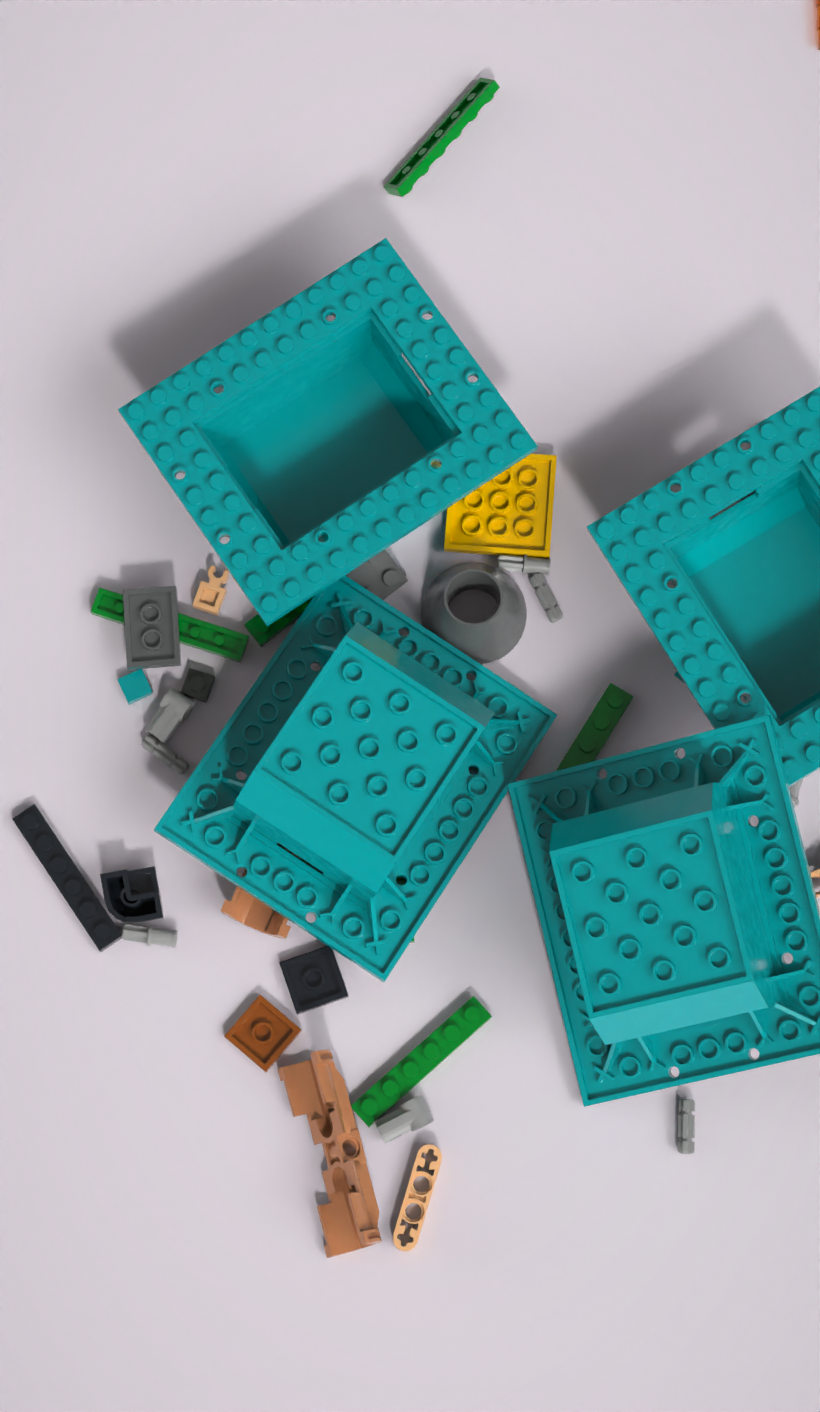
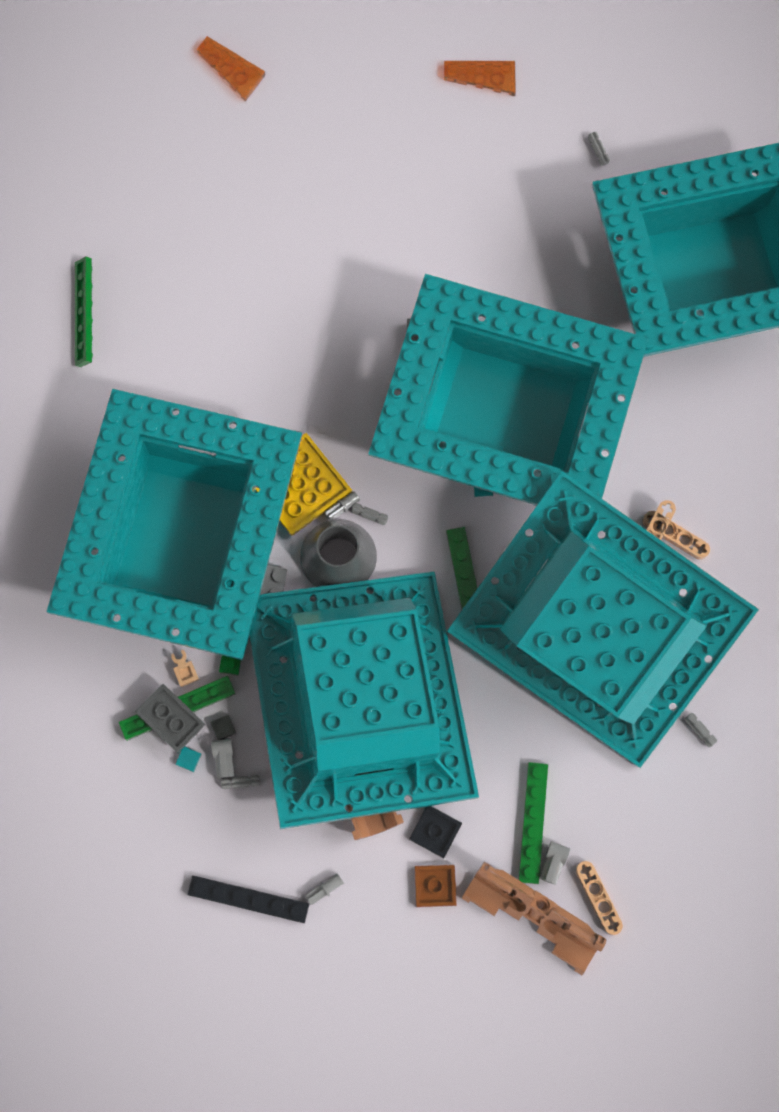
camera: 50 degrees left, 0 degrees up
(132, 895) = (296, 875): black brick -> none

